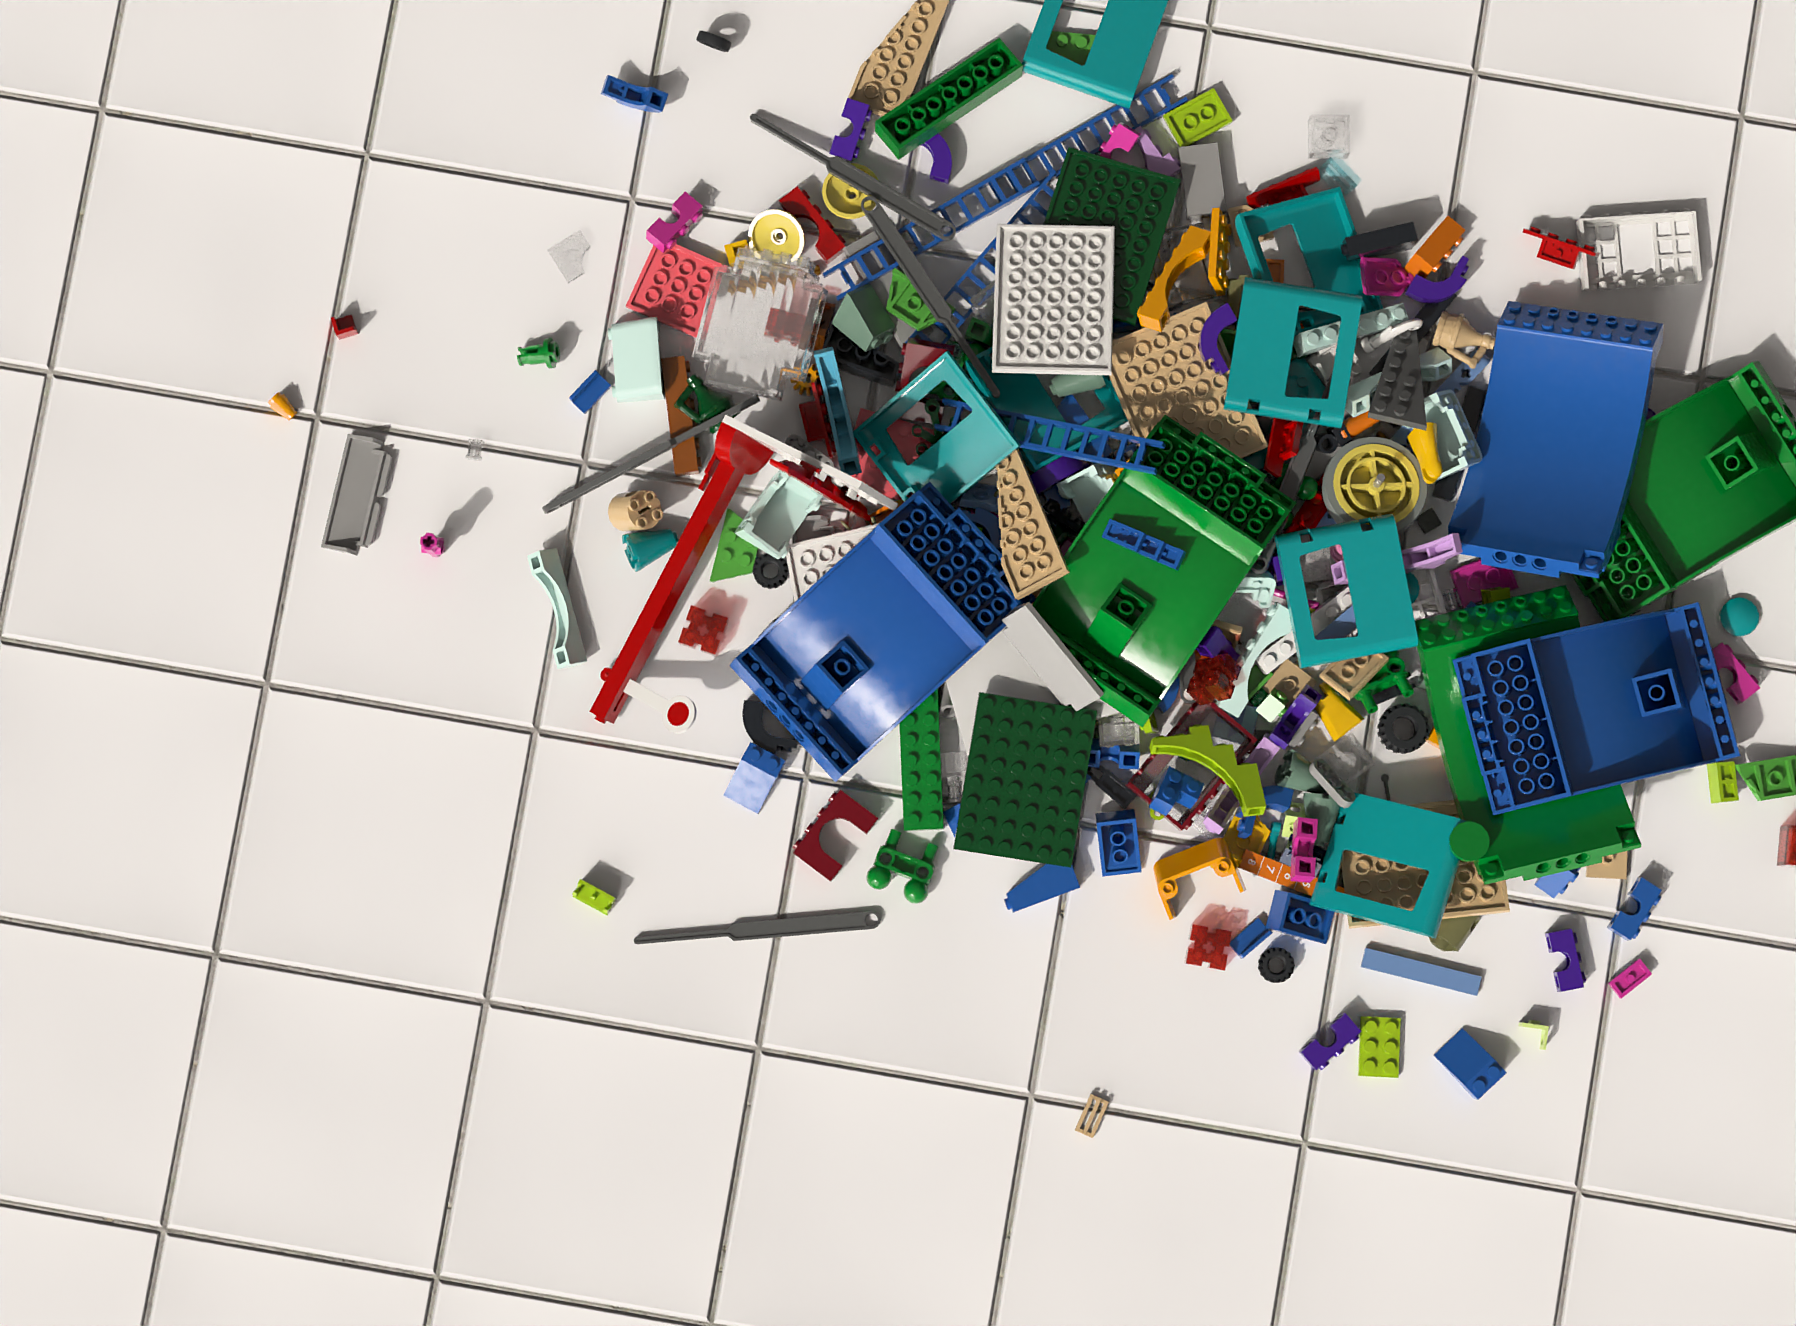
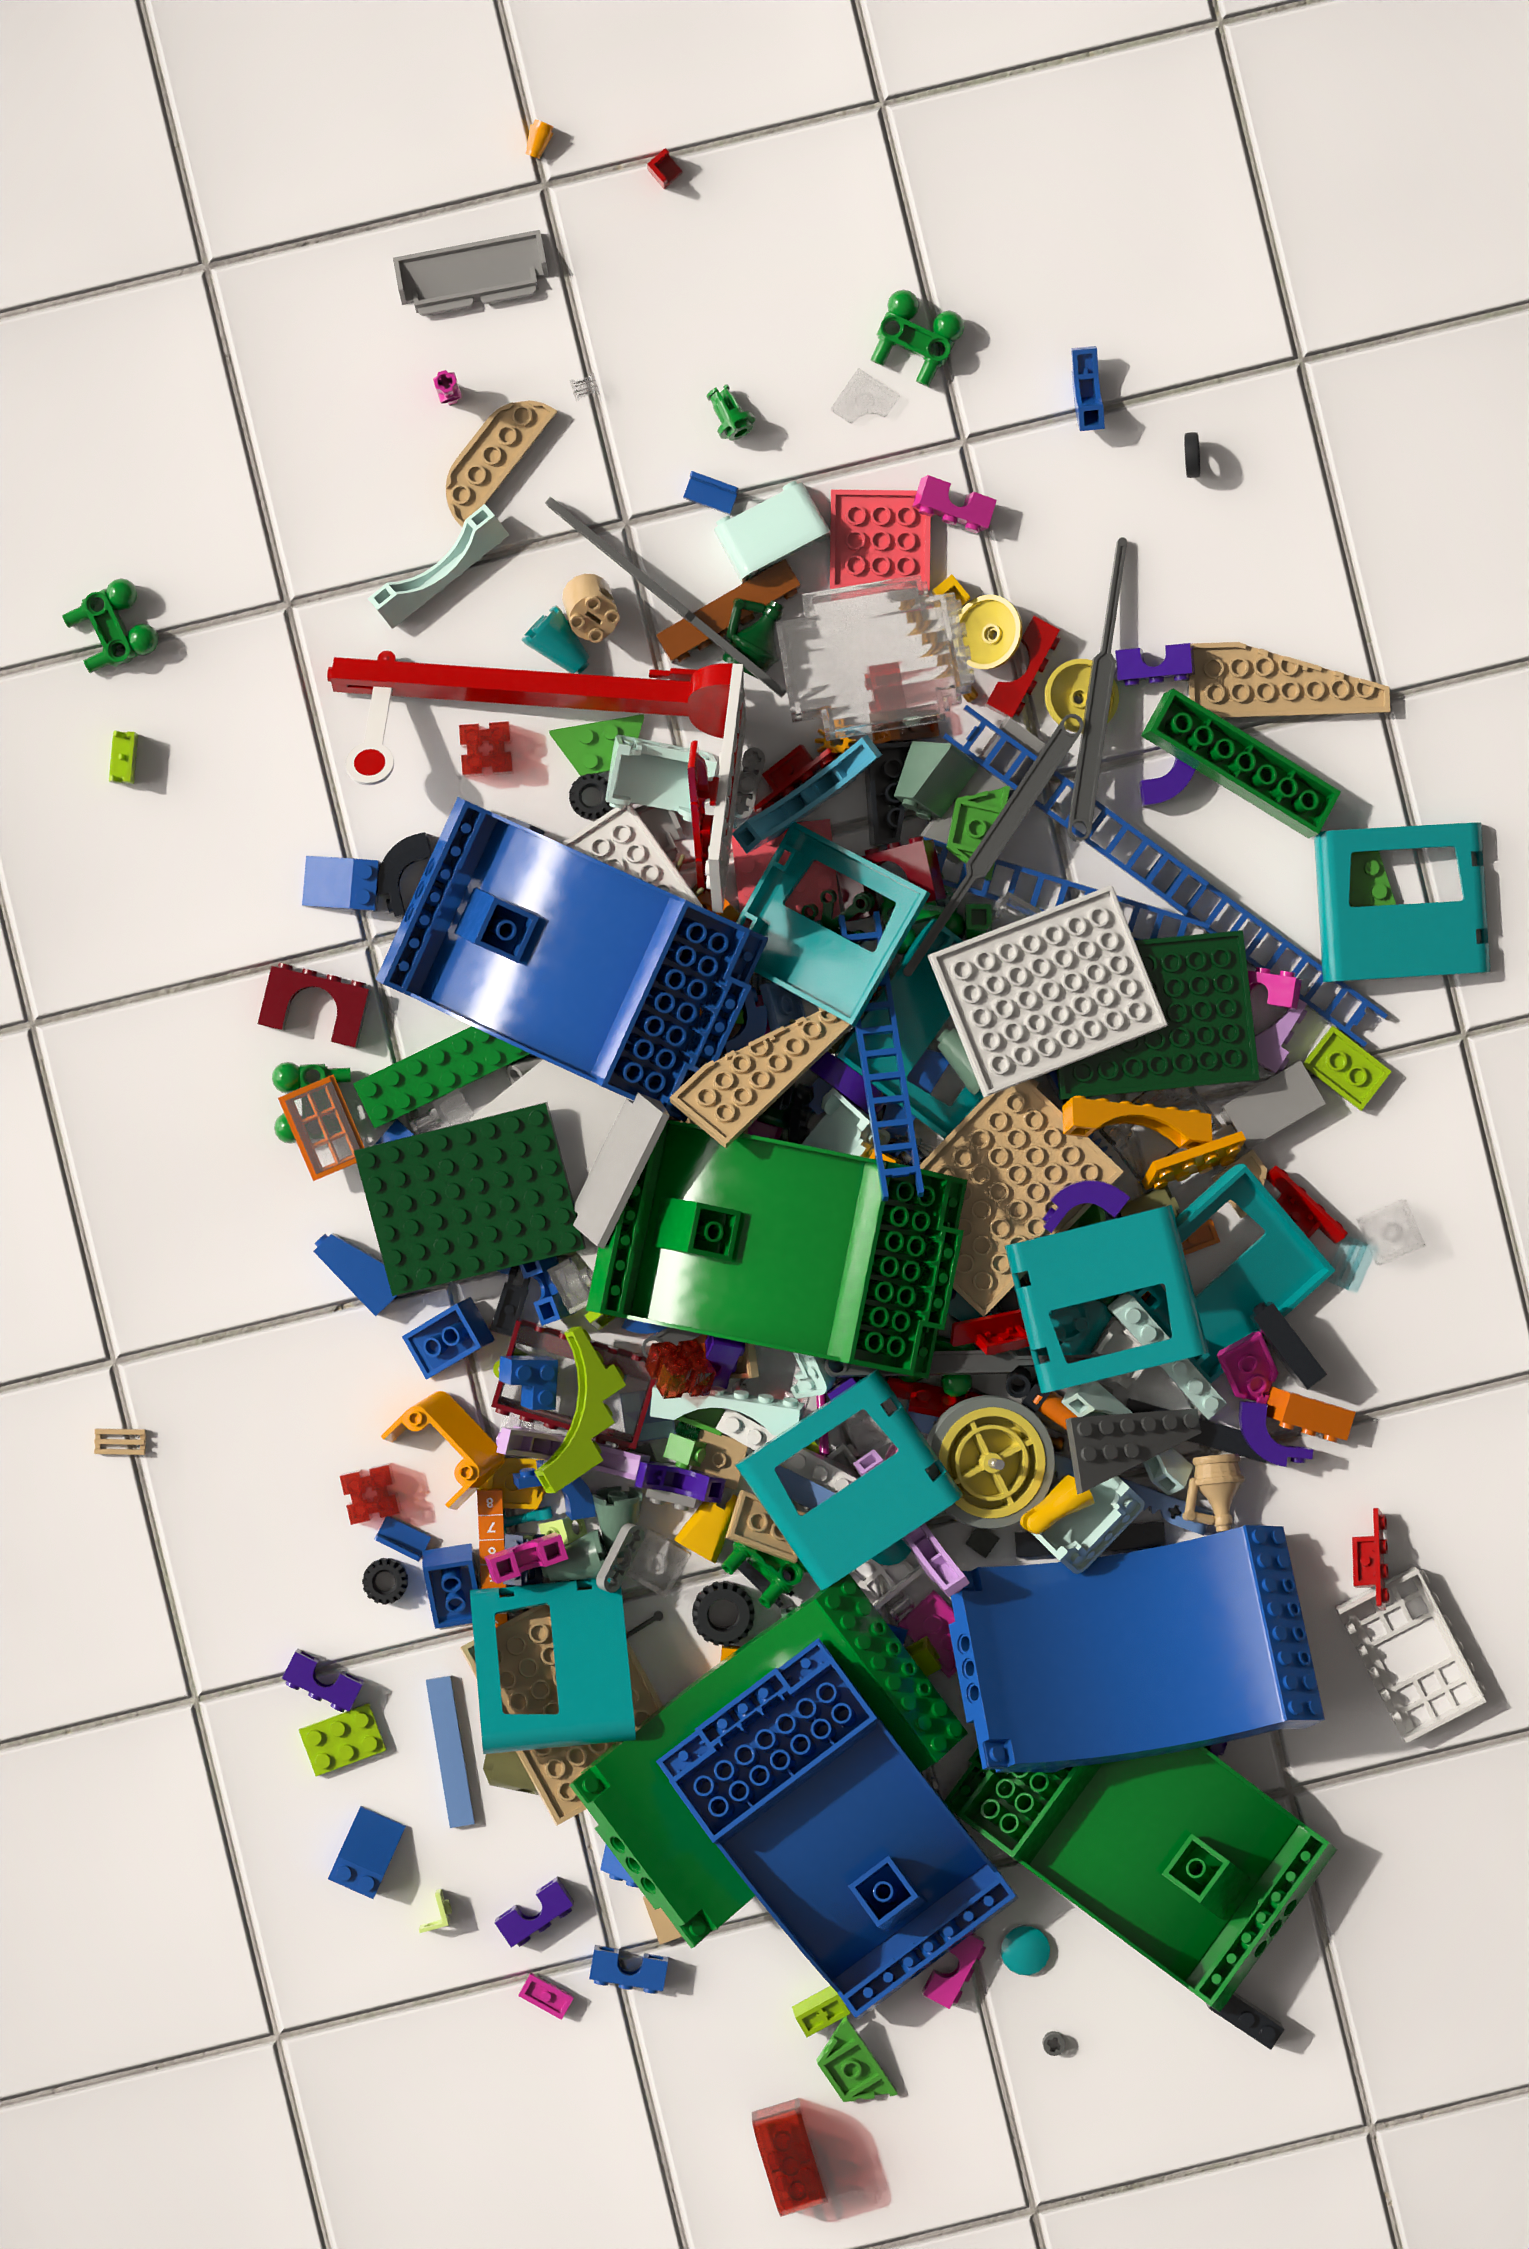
camera: 60 degrees right, 5 degrees up
(494, 535) = (493, 455): none -> tan plate
(496, 865) = (110, 627): none -> green piece
(545, 200) = (947, 329): none -> green piece
(774, 928) = (177, 981): dark grey piece -> none
(926, 865) = (322, 1127): none -> clear piece
(1143, 544) = (797, 1221): blue slope -> none
(1371, 343) = (1164, 1386): white plant -> none
(1469, 841) = (611, 1746): green tile -> none

